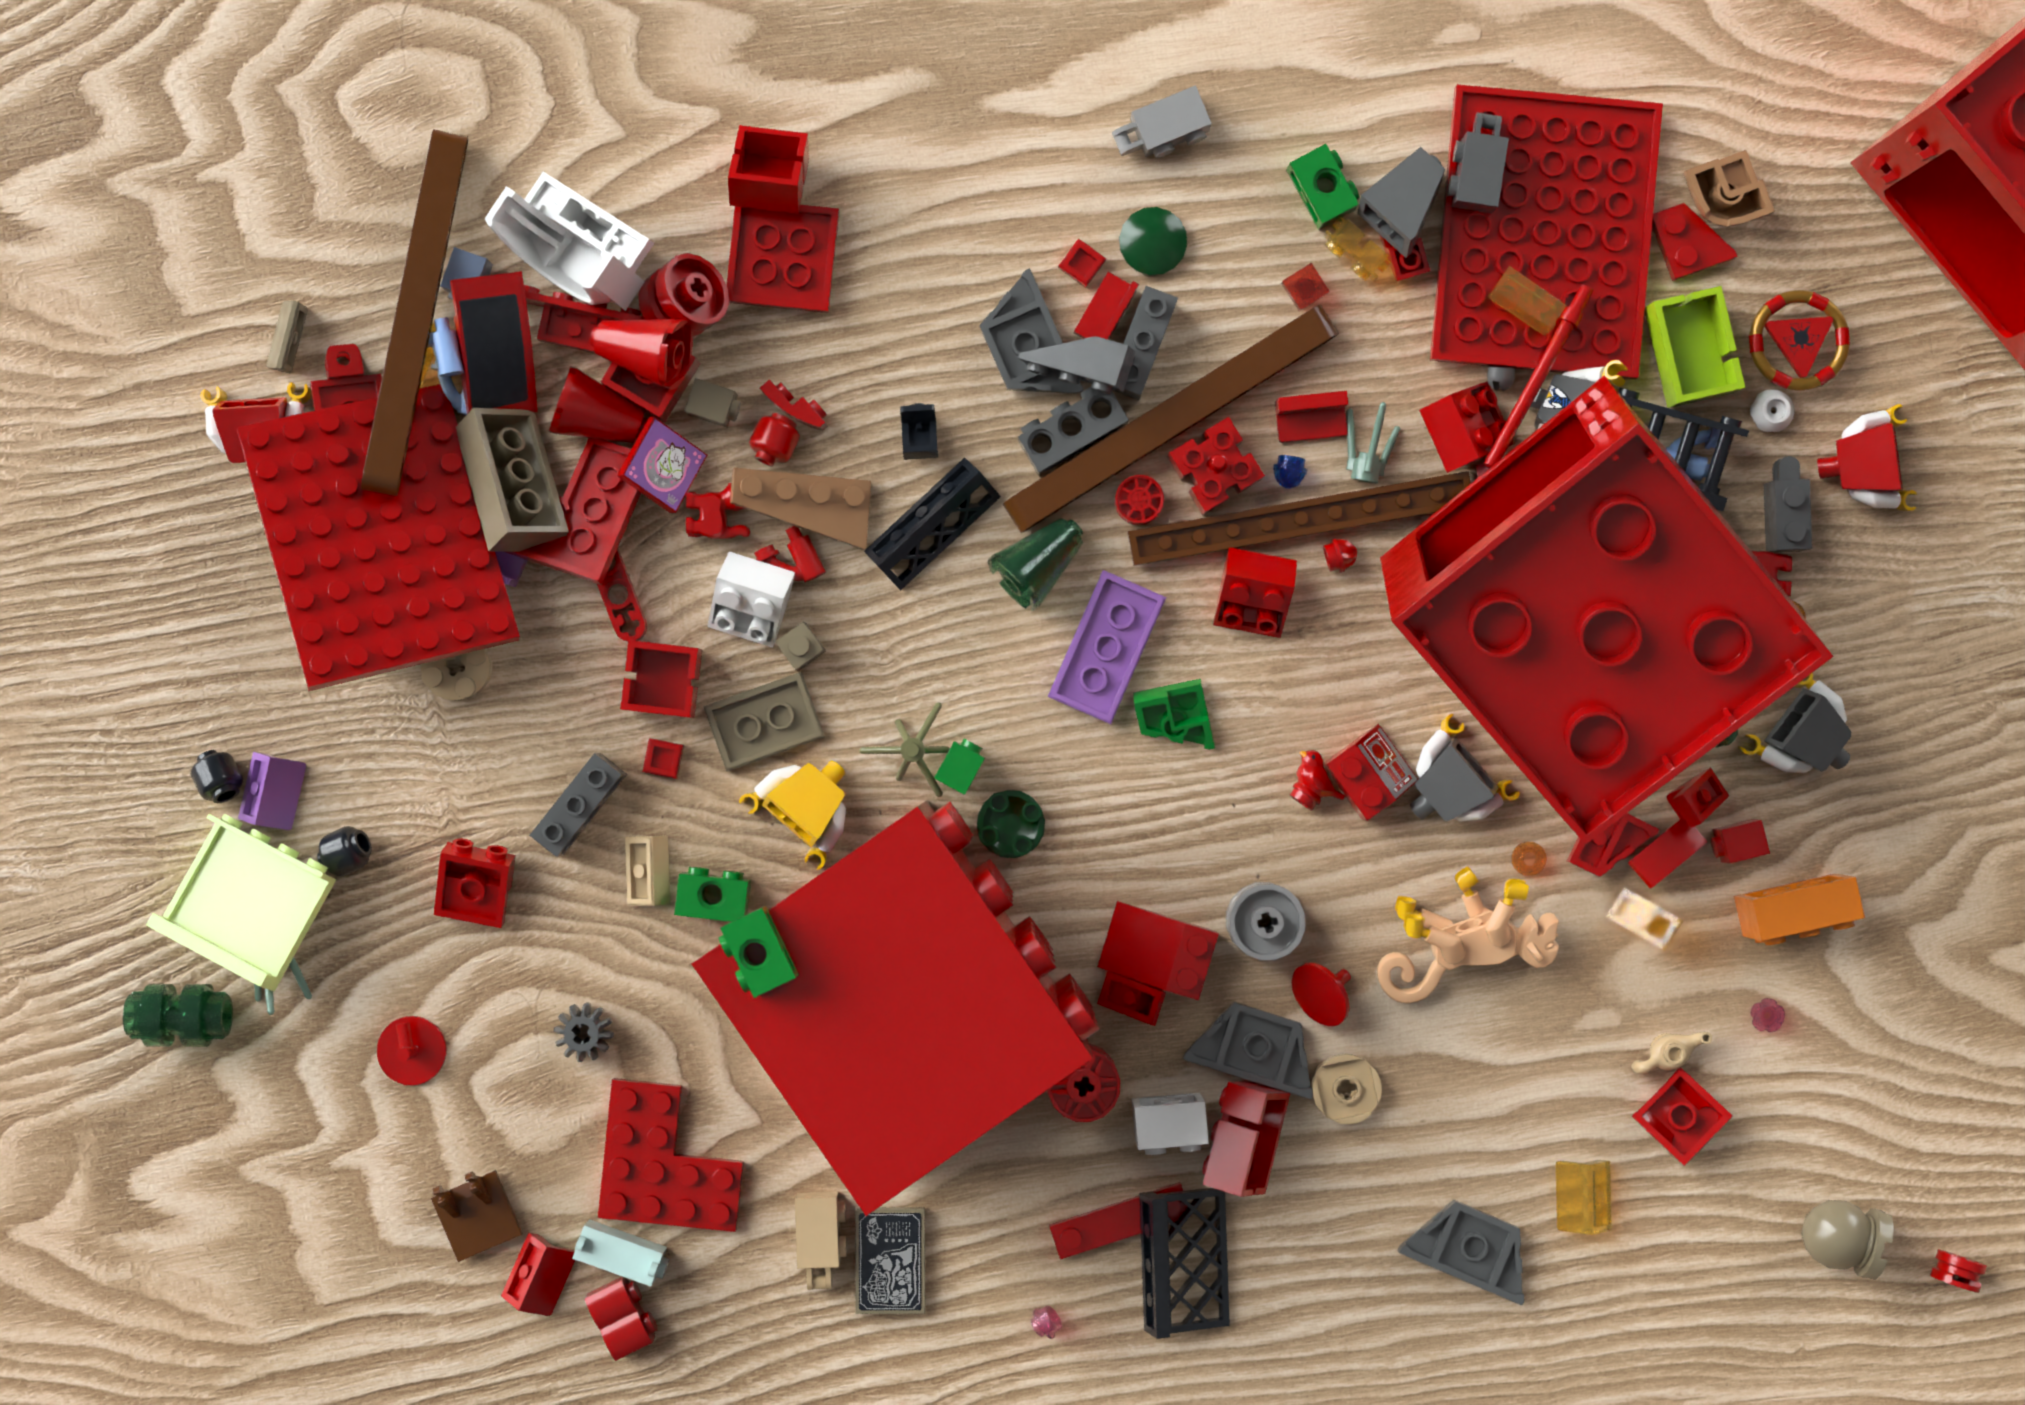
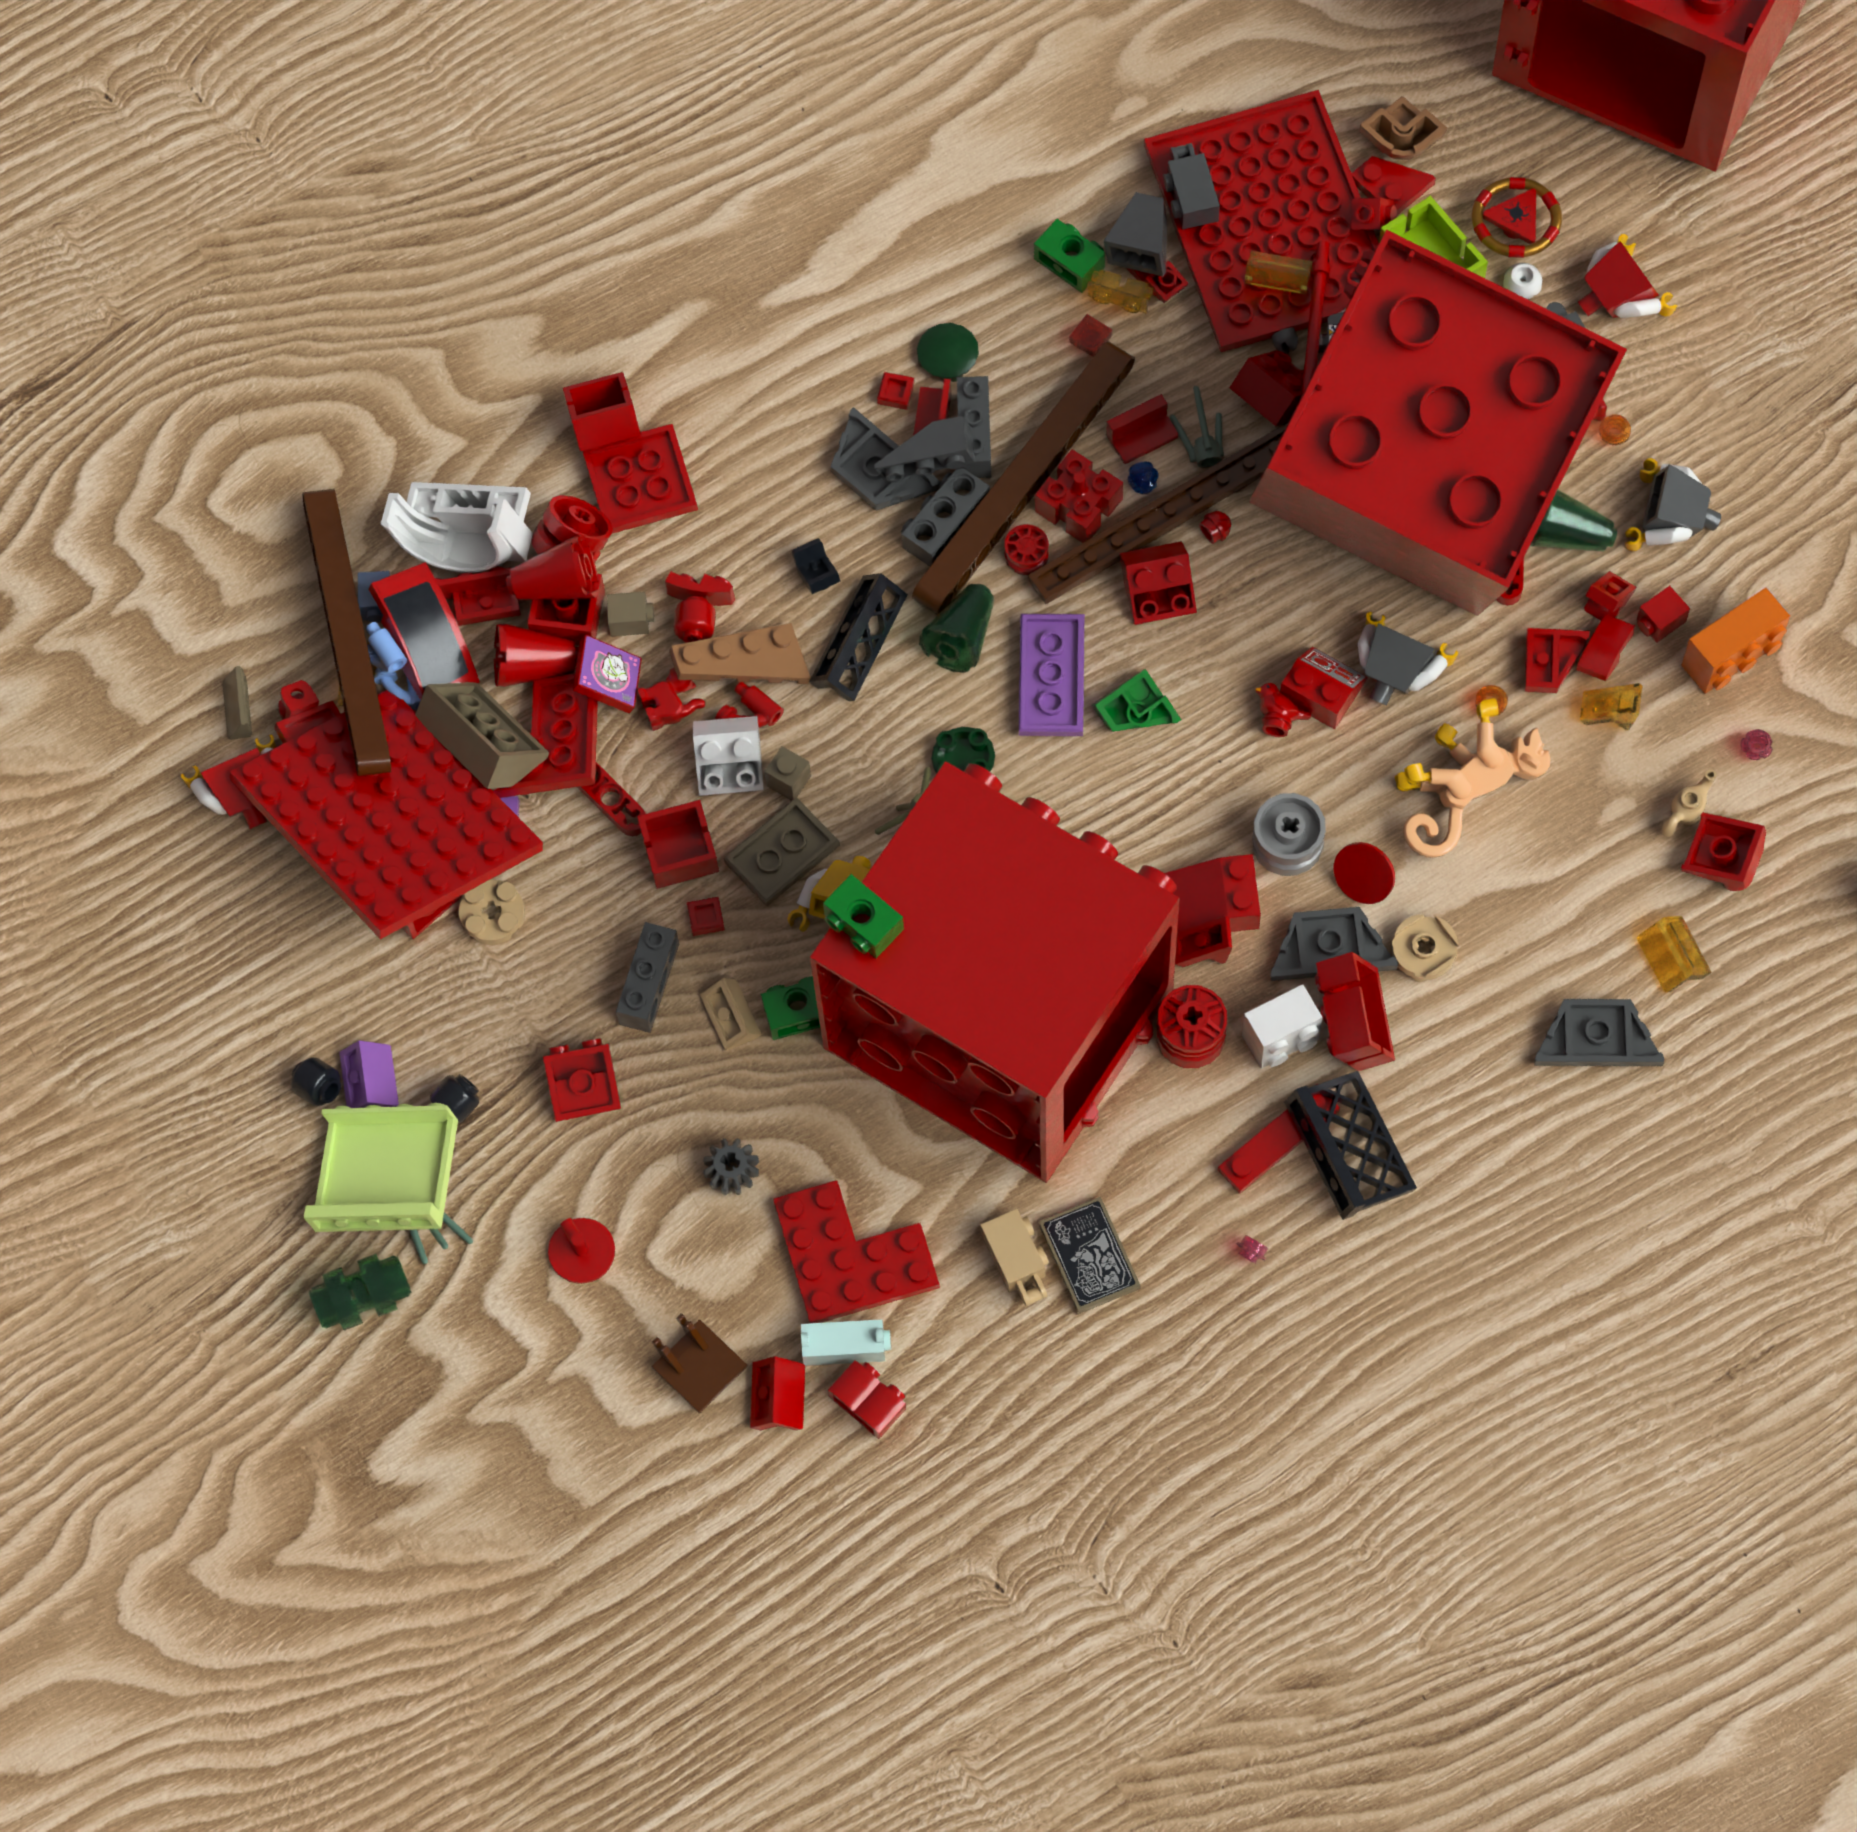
camera: 20 degrees left, 20 degrees down
(982, 697) = (963, 747): none -> dark green dish
(1165, 124) = (918, 258): light grey brick -> none
(1653, 277) = (1372, 213): none -> red bracket

